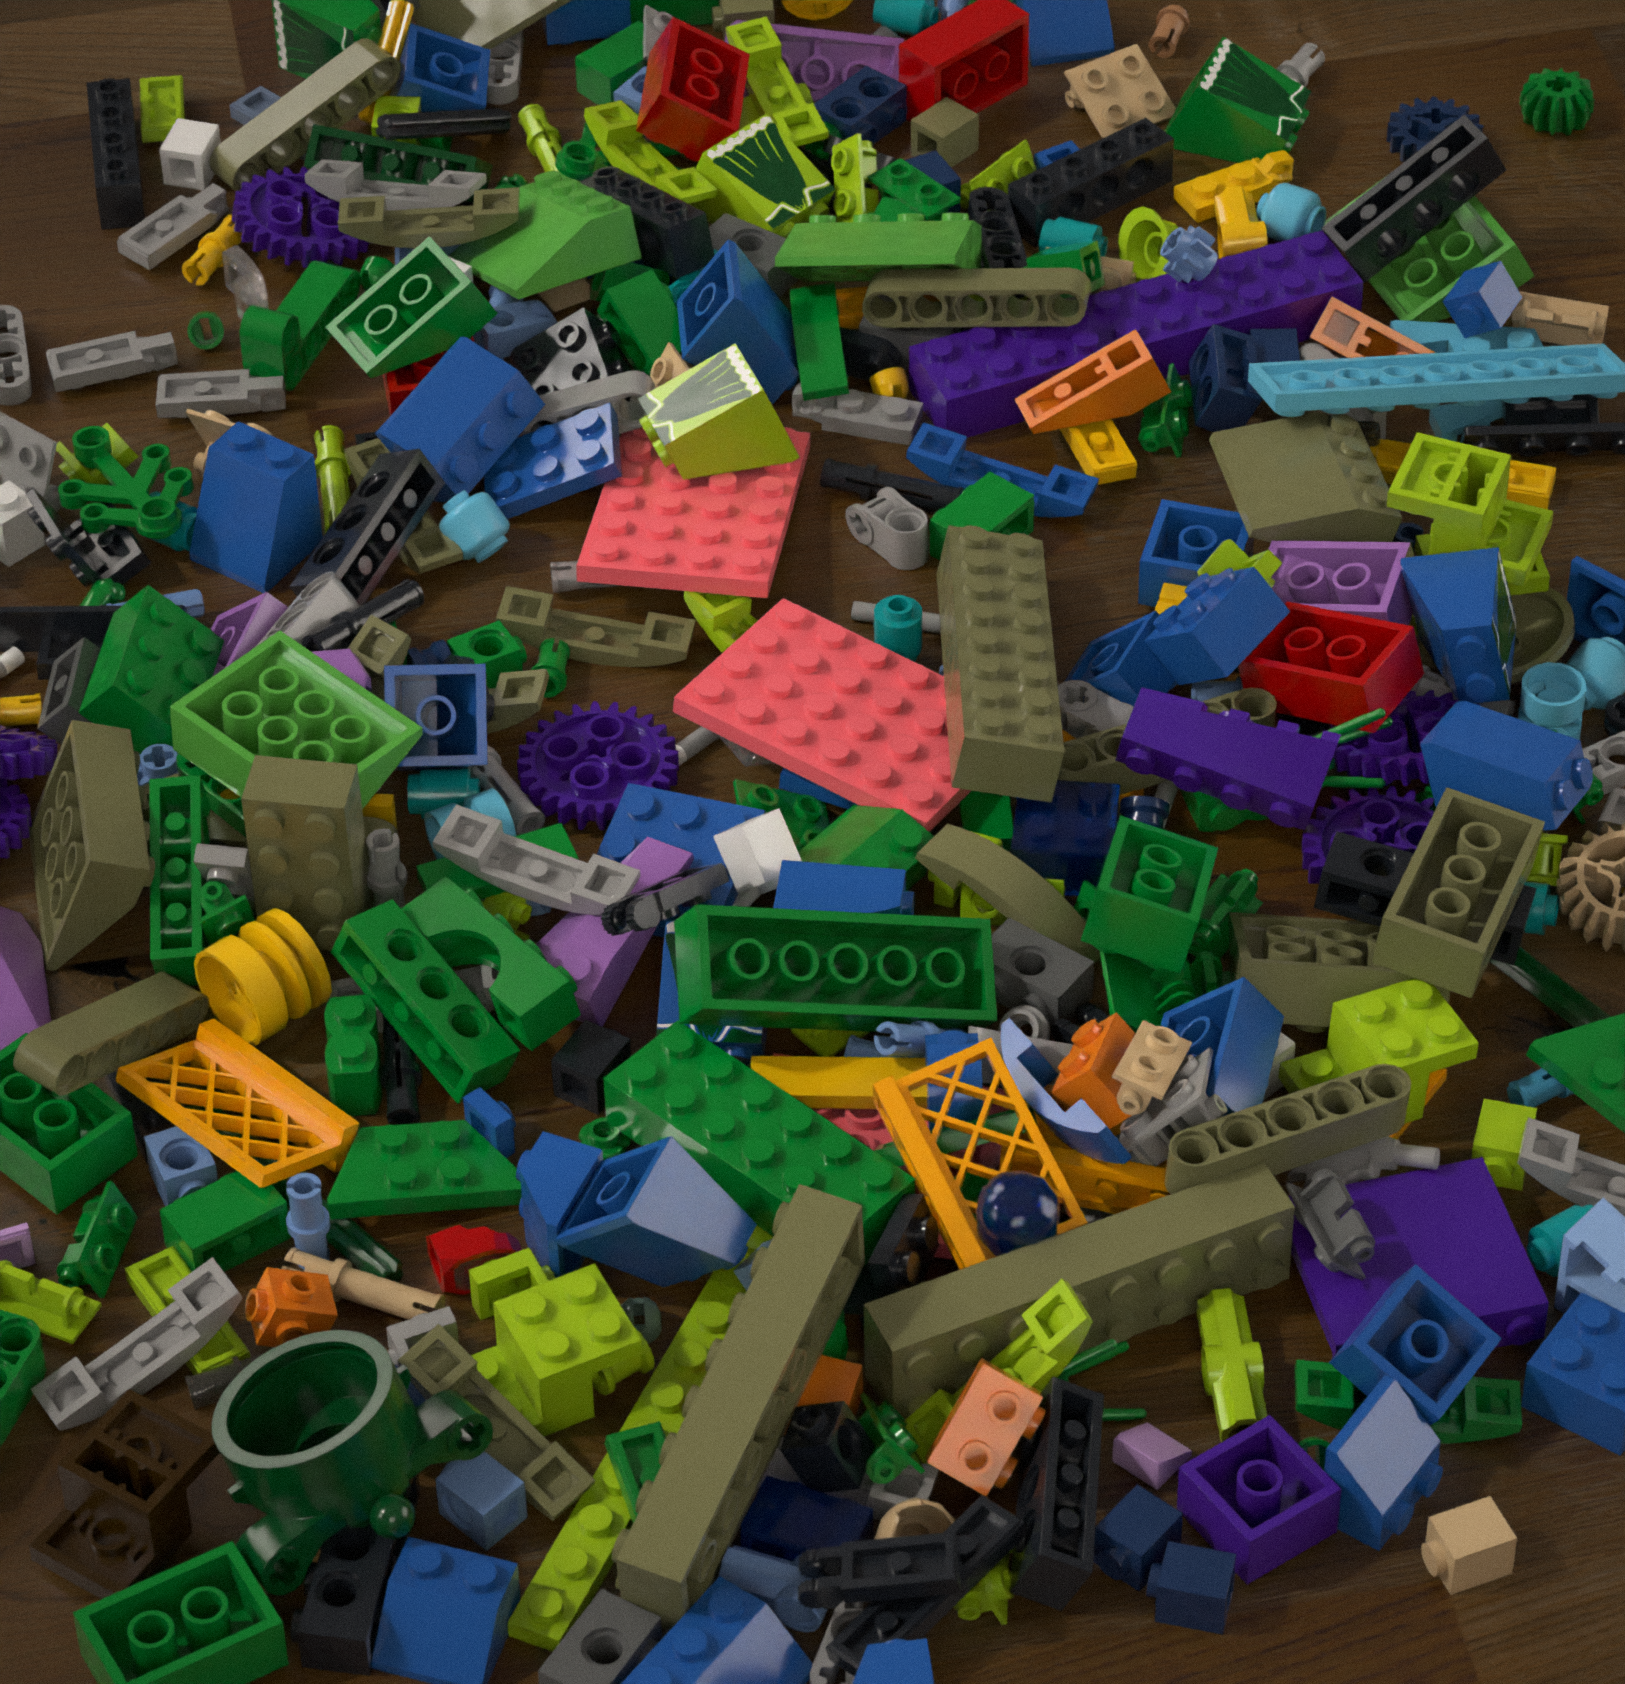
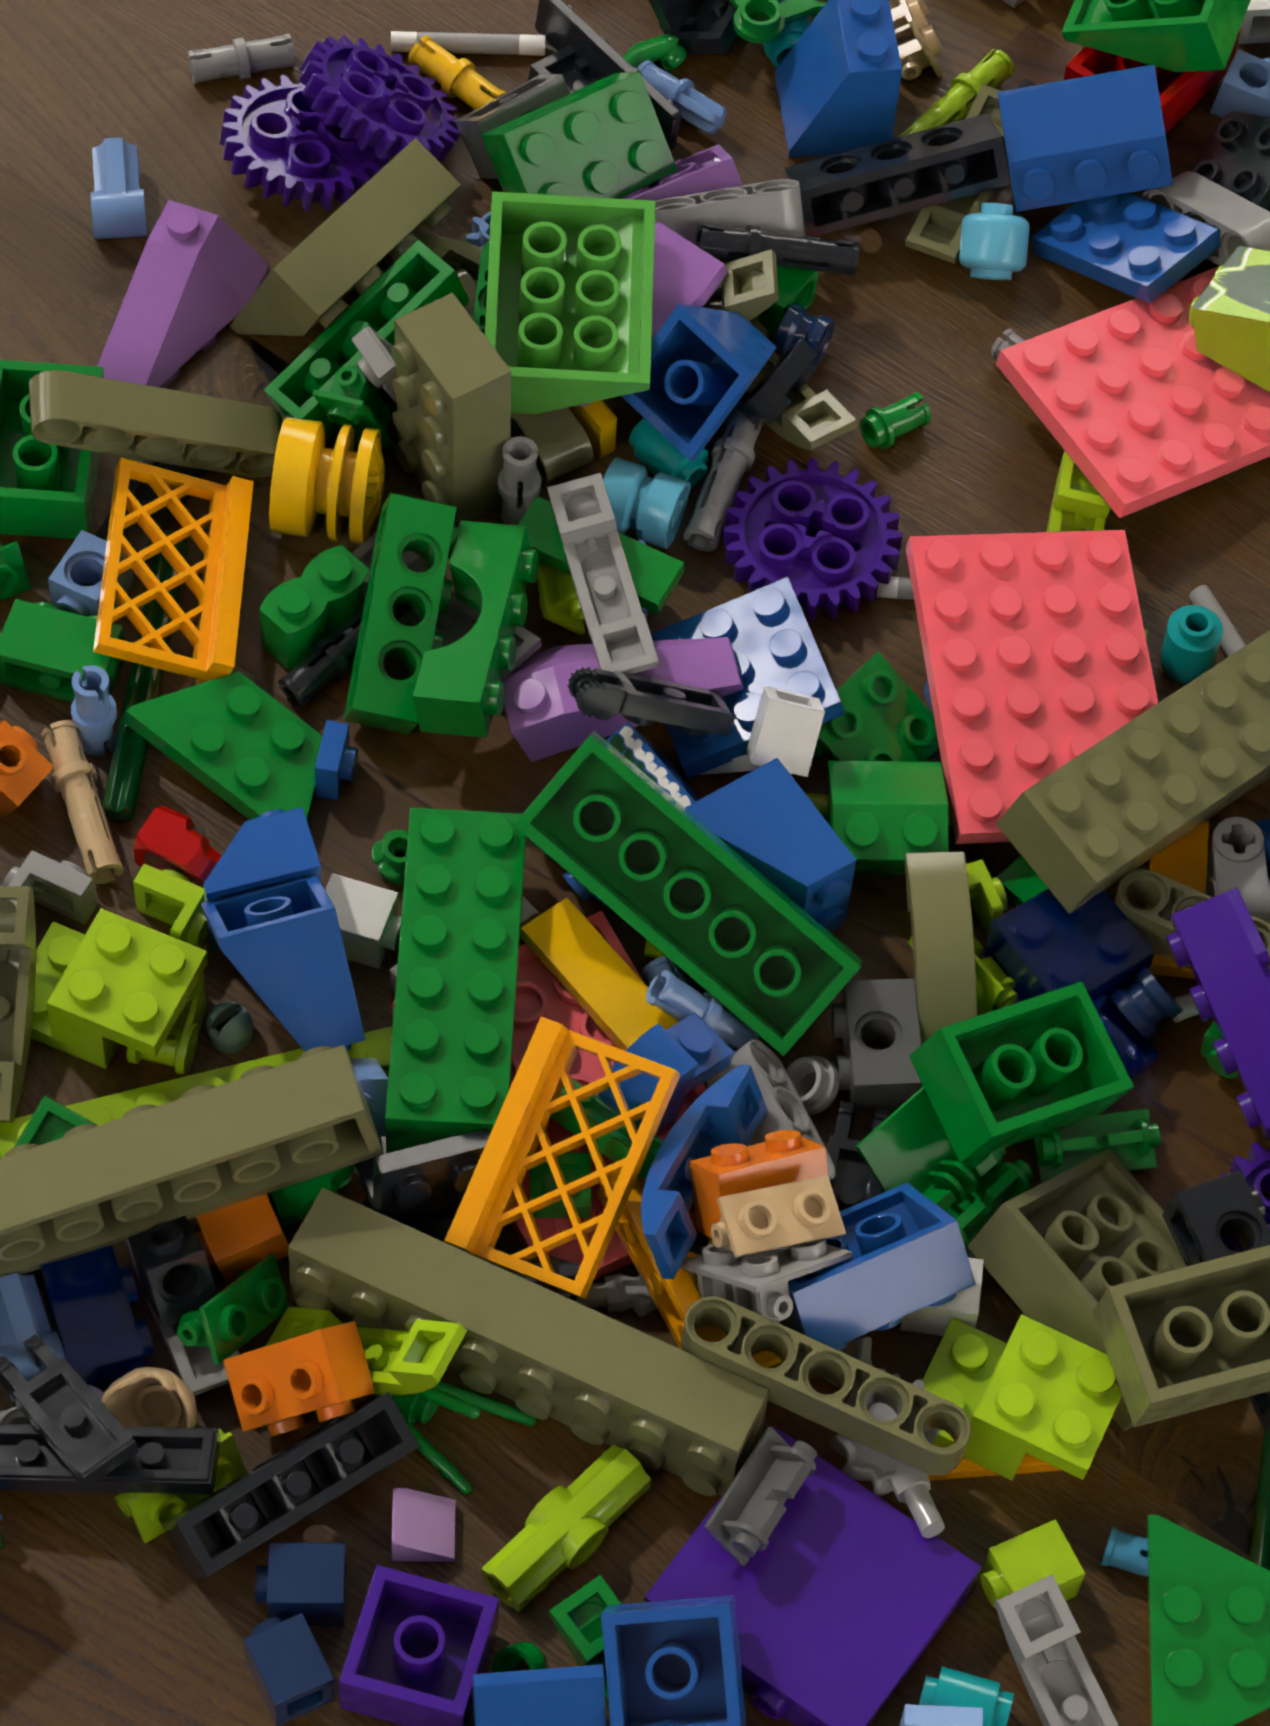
camera: 45 degrees right, 15 degrees up
(492, 647) = (853, 368): green brick -> none
(584, 1063) = (467, 779): black brick -> none
(595, 638) = (962, 419): olive slope -> none
(1016, 1211) = (530, 1232): clear blue hair -> none

